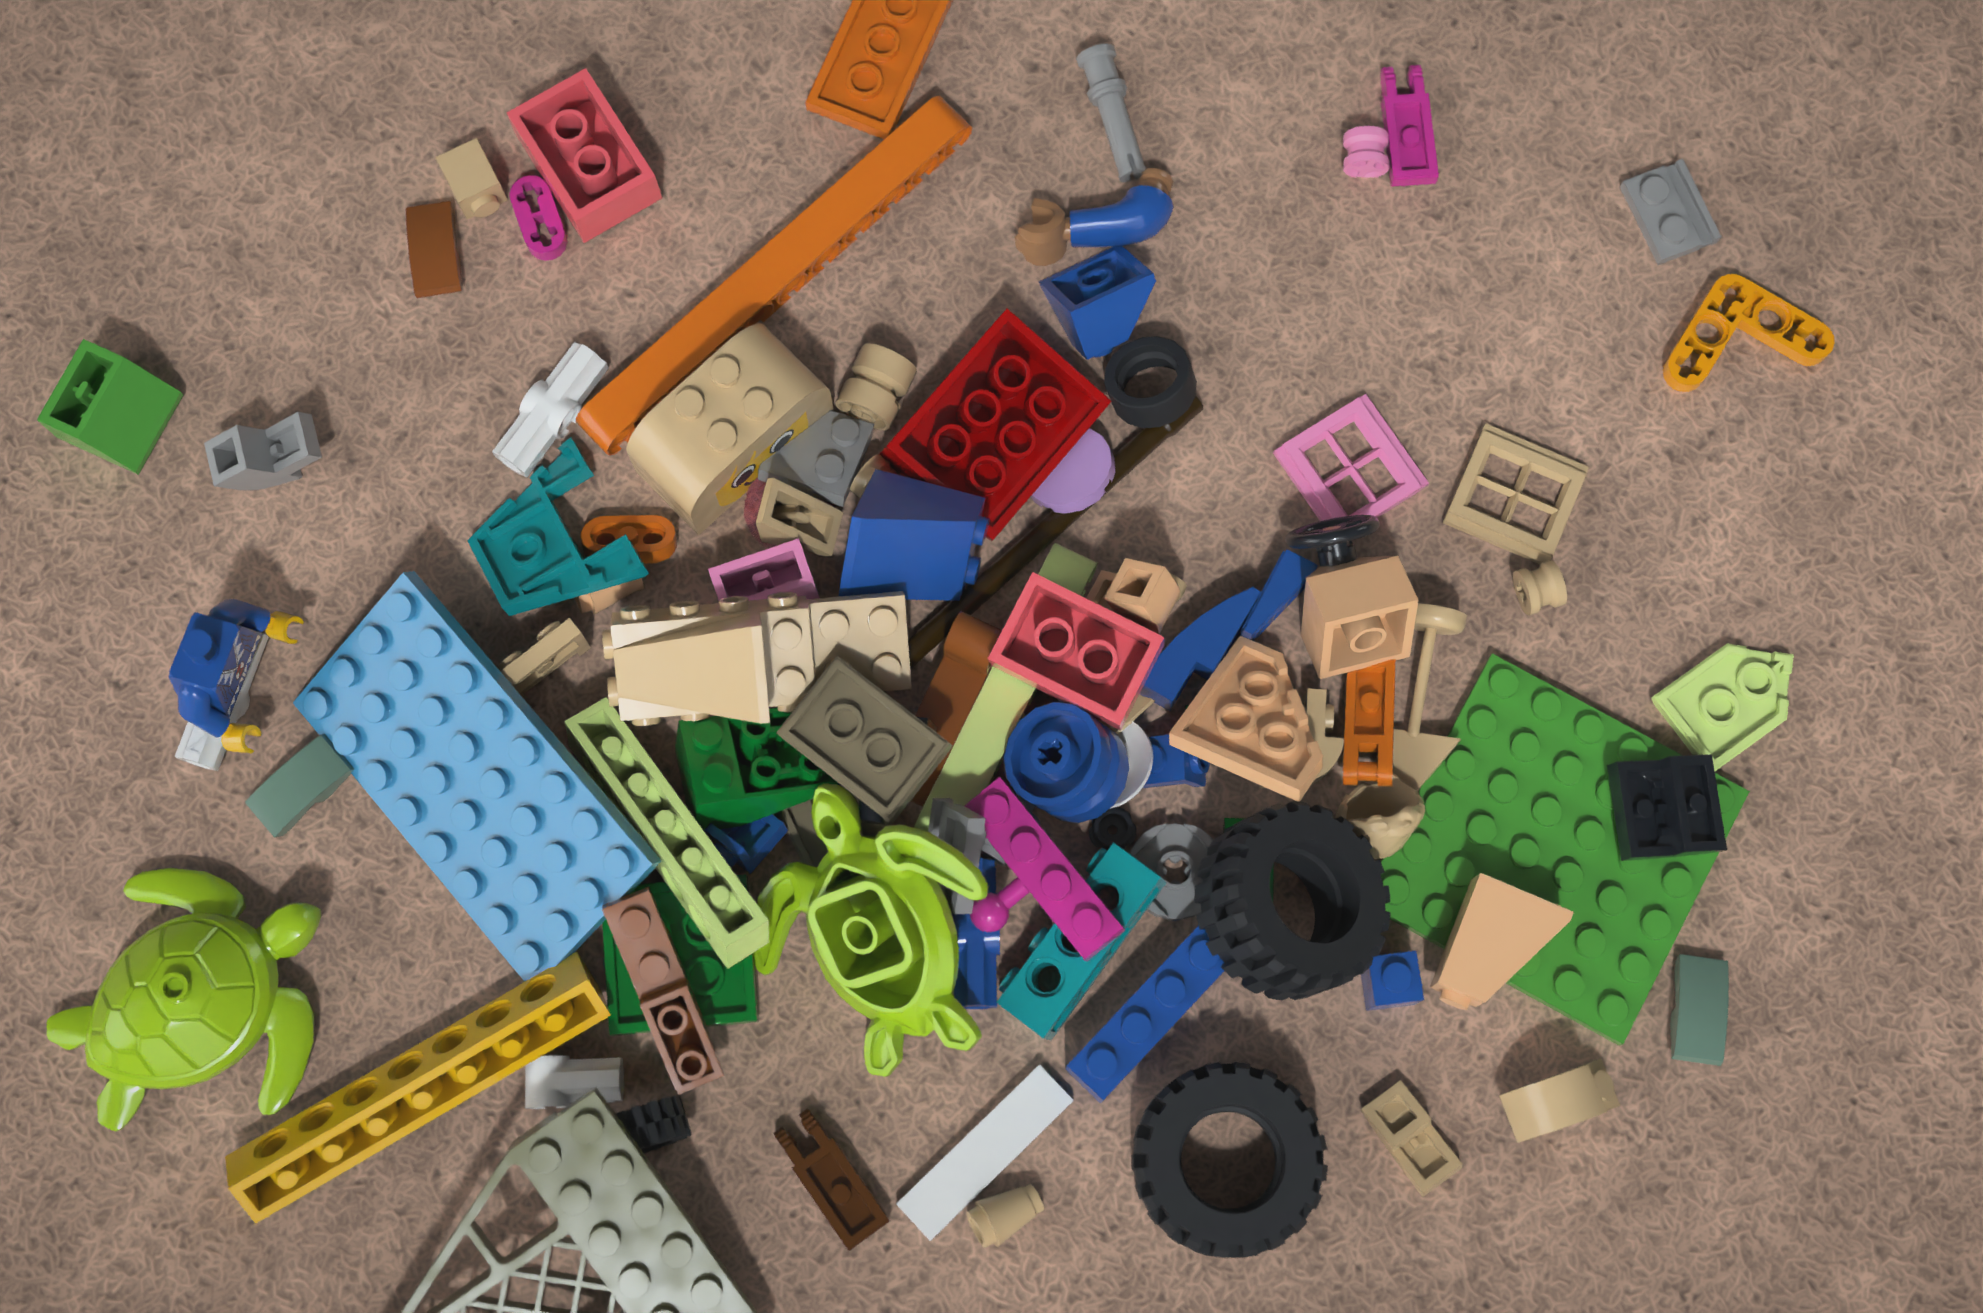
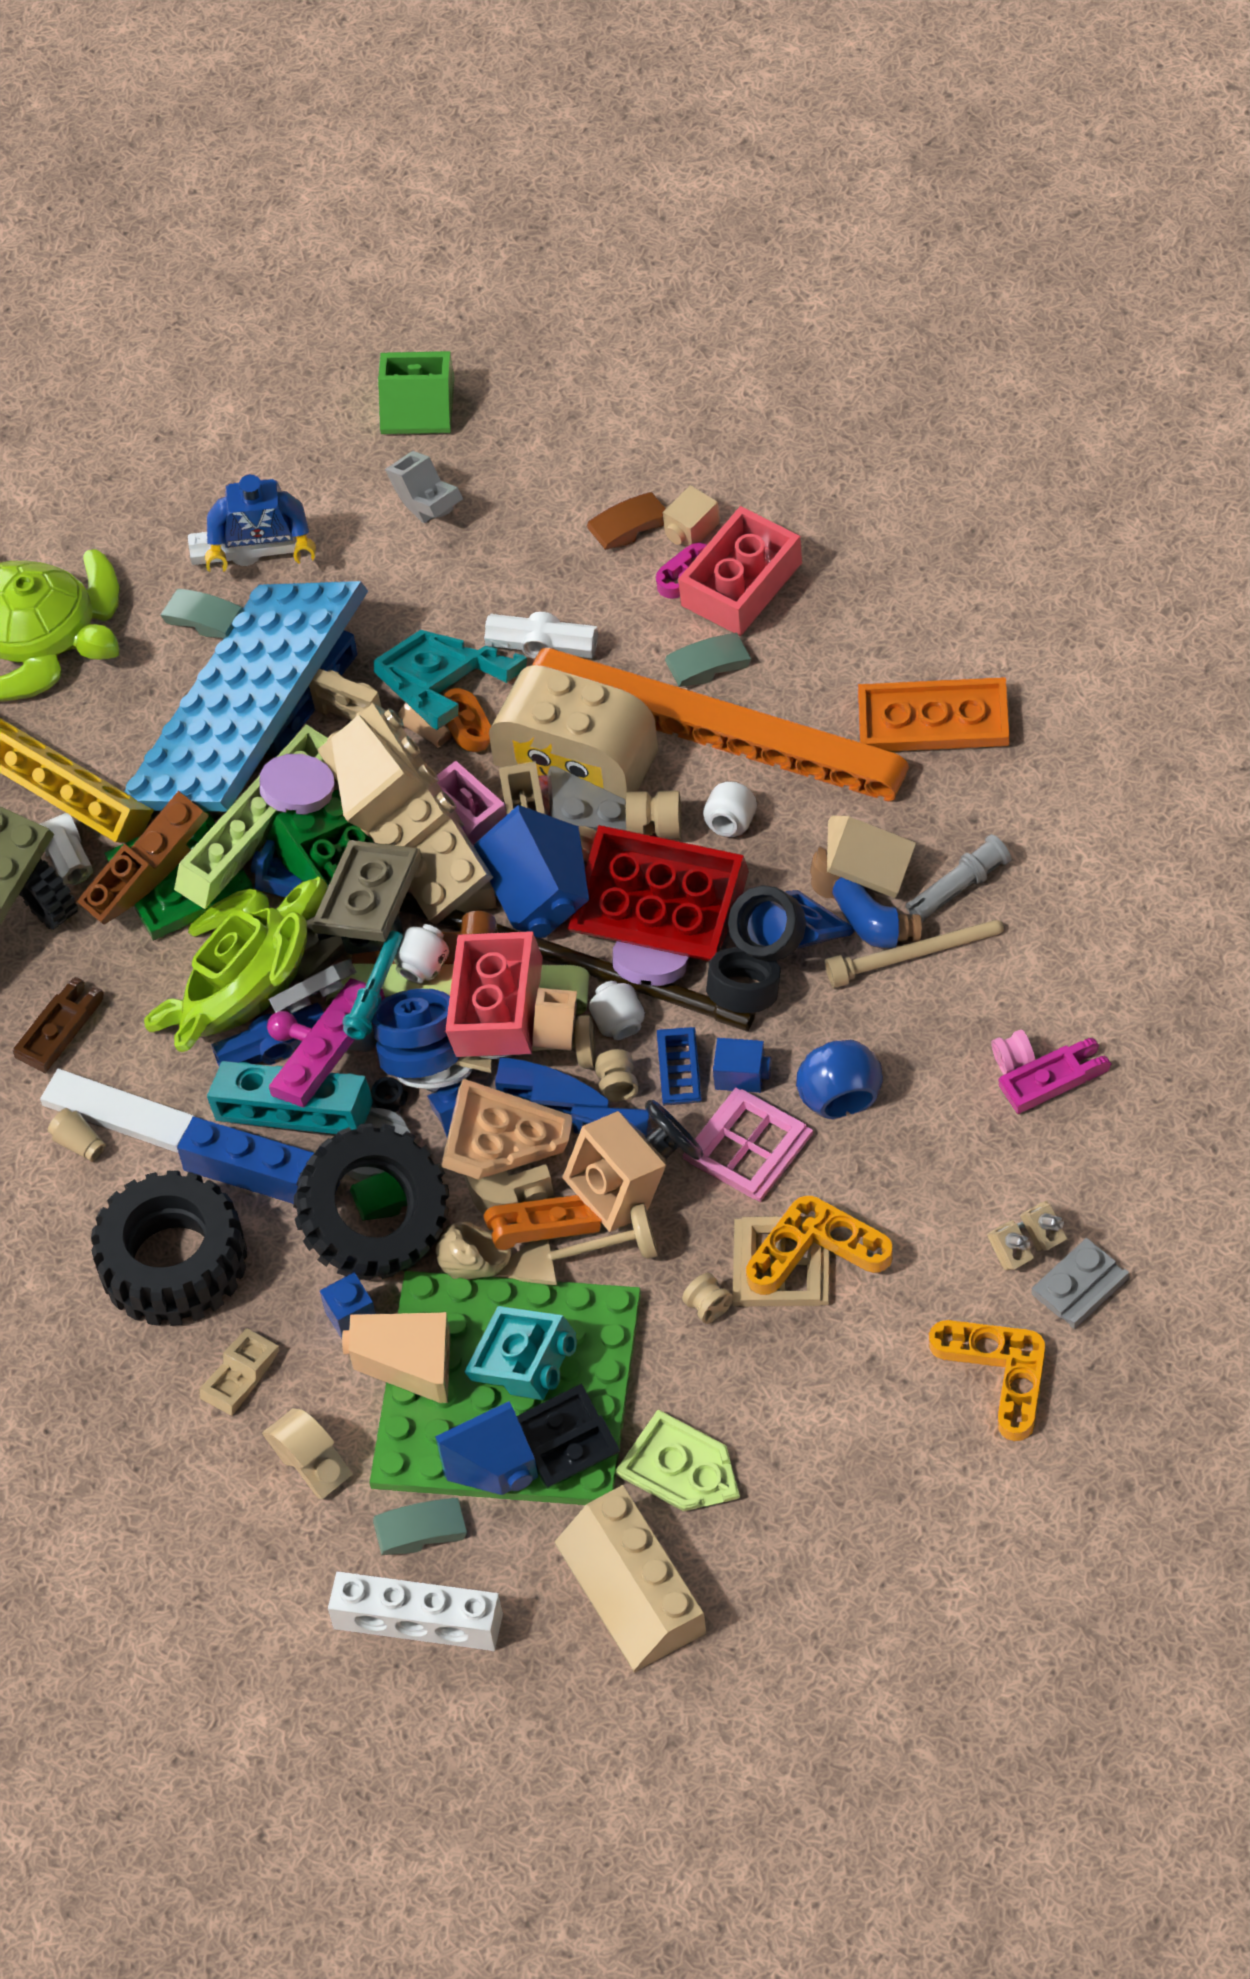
camera: 75 degrees right, 20 degrees down
(663, 763) = (296, 783): none -> lavender tile
(680, 244) = (701, 660): none -> sand green slope
(906, 304) = (730, 809): none -> white head
(966, 714) = (421, 954): none -> white head
(1041, 814) = (358, 1022): none -> teal pin
(1052, 183) = (867, 854): none -> tan slope
(1119, 532) = (617, 1010): none -> white head
(1149, 335) = (744, 908): none -> black tyre
(1175, 279) = (842, 970): none -> tan piece
(1195, 507) = (675, 1038): none -> blue slope
(1197, 566) = (615, 1071): none -> tan wheel
(1255, 432) = (740, 1065): none -> blue brick
(1328, 336) = (839, 1079): none -> blue piece
(1510, 438) = (818, 1231): none -> light orange beam
(1550, 810) = (522, 1351): none -> teal plate
(1600, 216) = (1036, 1221): none -> tan piece
(1679, 894) = (488, 1452): none -> blue slope
(1816, 1055) = (415, 1611): none -> white brick
(1860, 808) = (630, 1580): none -> tan slope

